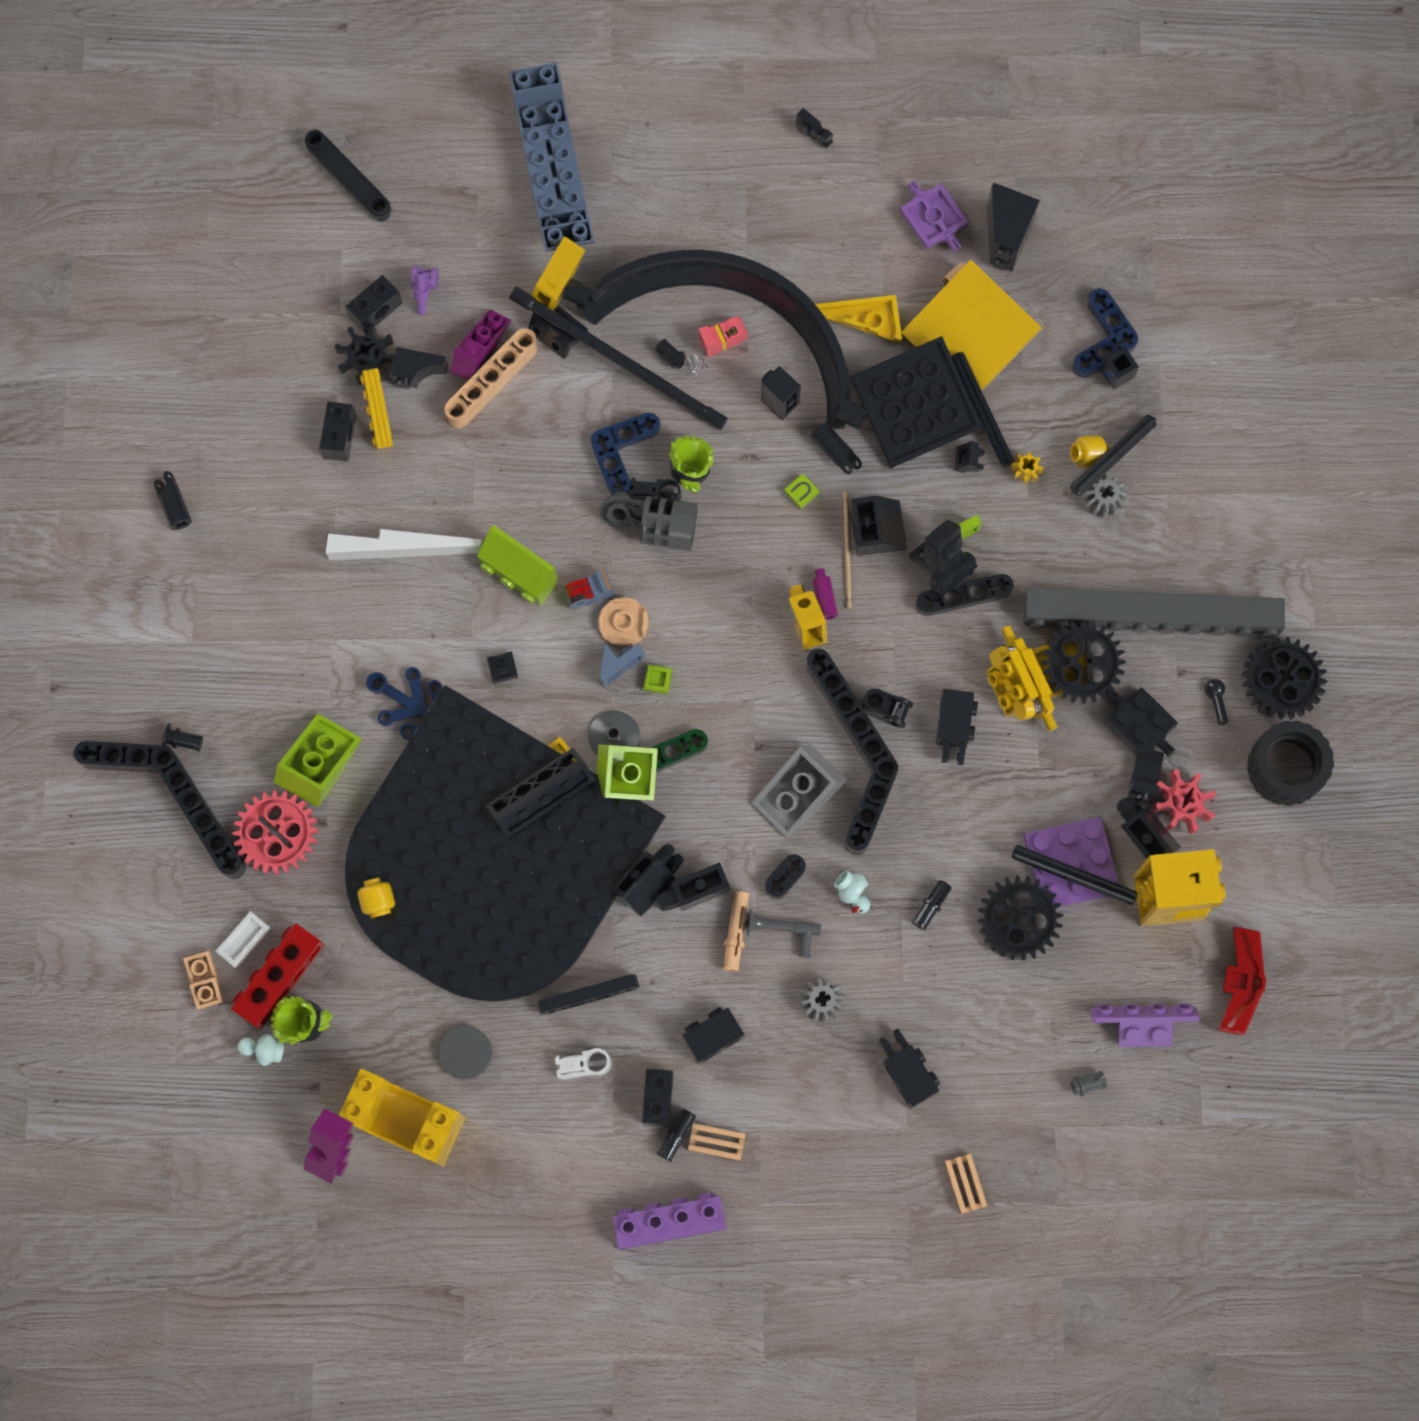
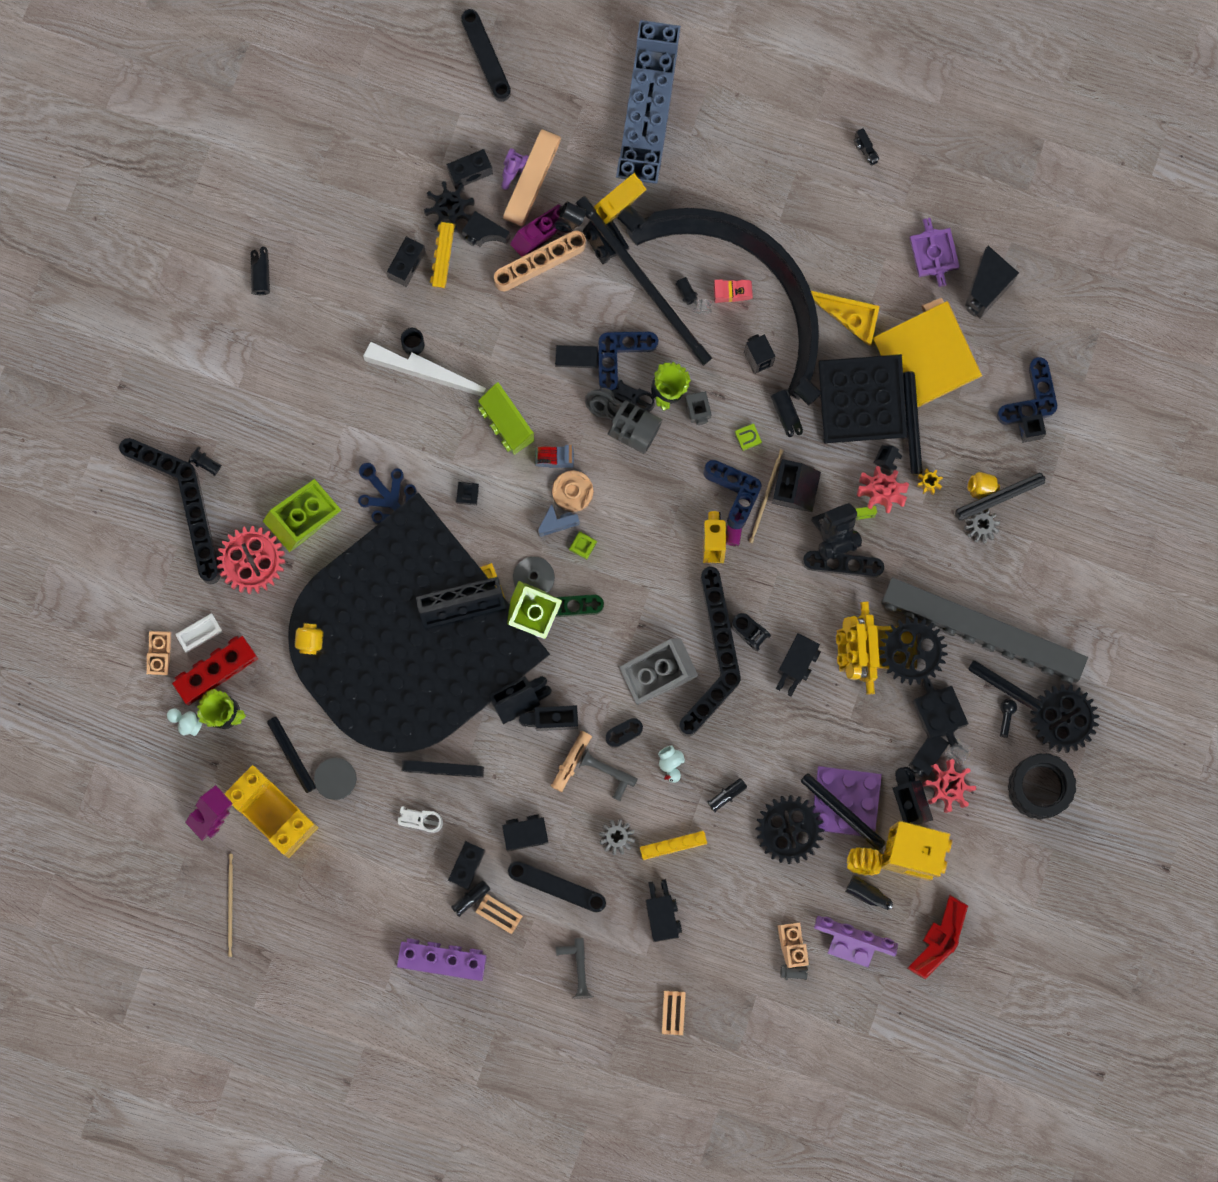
camera: 15 degrees right, 5 degrees up
(372, 507) = (412, 332): none -> black piece
(392, 1249) = (230, 904): none -> tan piece
(403, 1043) = (291, 754): none -> black axle
(449, 290) = (532, 178): none -> light nougat beam
(508, 315) = (570, 217): none -> black piece
(571, 470) = (576, 356): none -> black tile
(731, 470) = (698, 400): none -> dark grey brick
(773, 1084) = (556, 886): none -> black piece
(820, 553) = (743, 491): none -> dark blue beam
(826, 1149) = (579, 951): none -> dark grey piece
(891, 986) = (673, 845): none -> yellow piece
(978, 494) = (882, 489): none -> coral gear
(1074, 1052) = (792, 945): none -> light nougat slope
(1121, 923) = (864, 861): none -> yellow gear
(1138, 959) = (868, 893): none -> black piece
(1204, 665) = (1005, 686): none -> black axle

